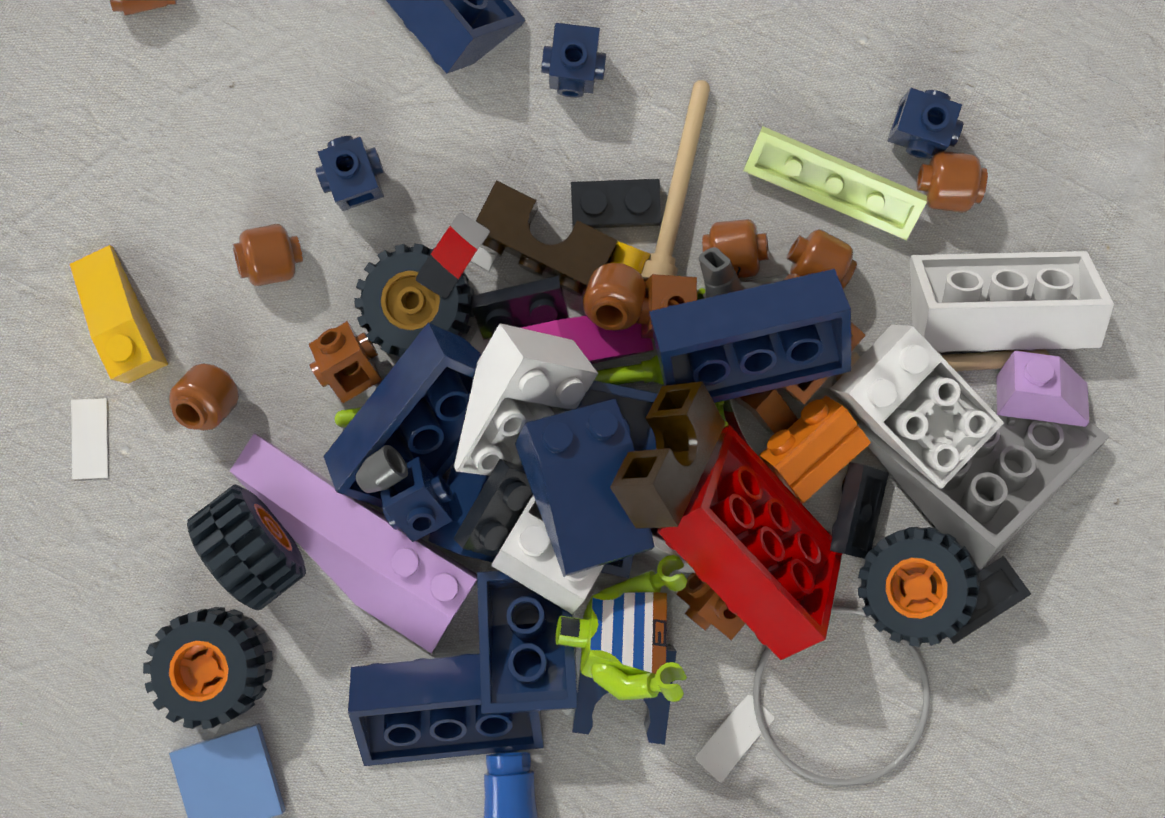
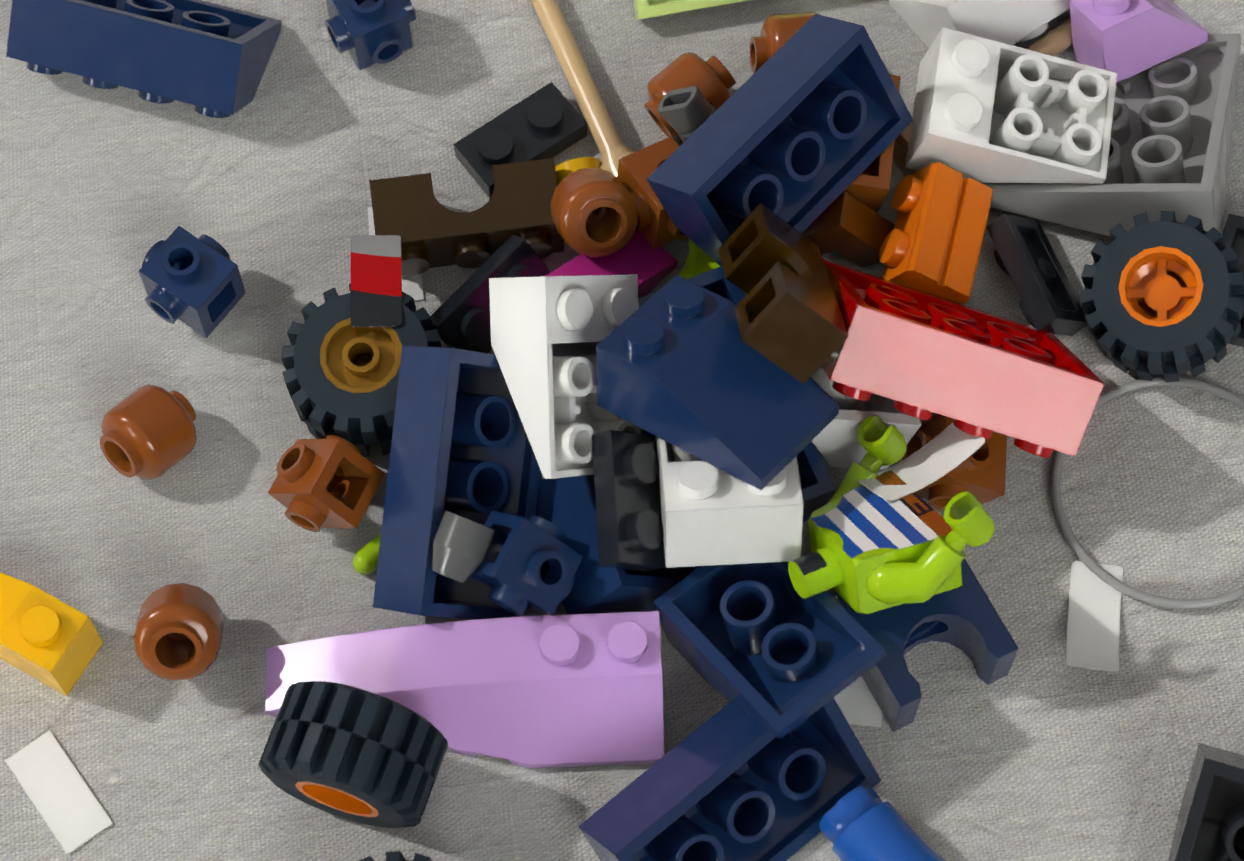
camera: 30 degrees left, 20 degrees down
(686, 607) = (928, 463): none -> white sticker

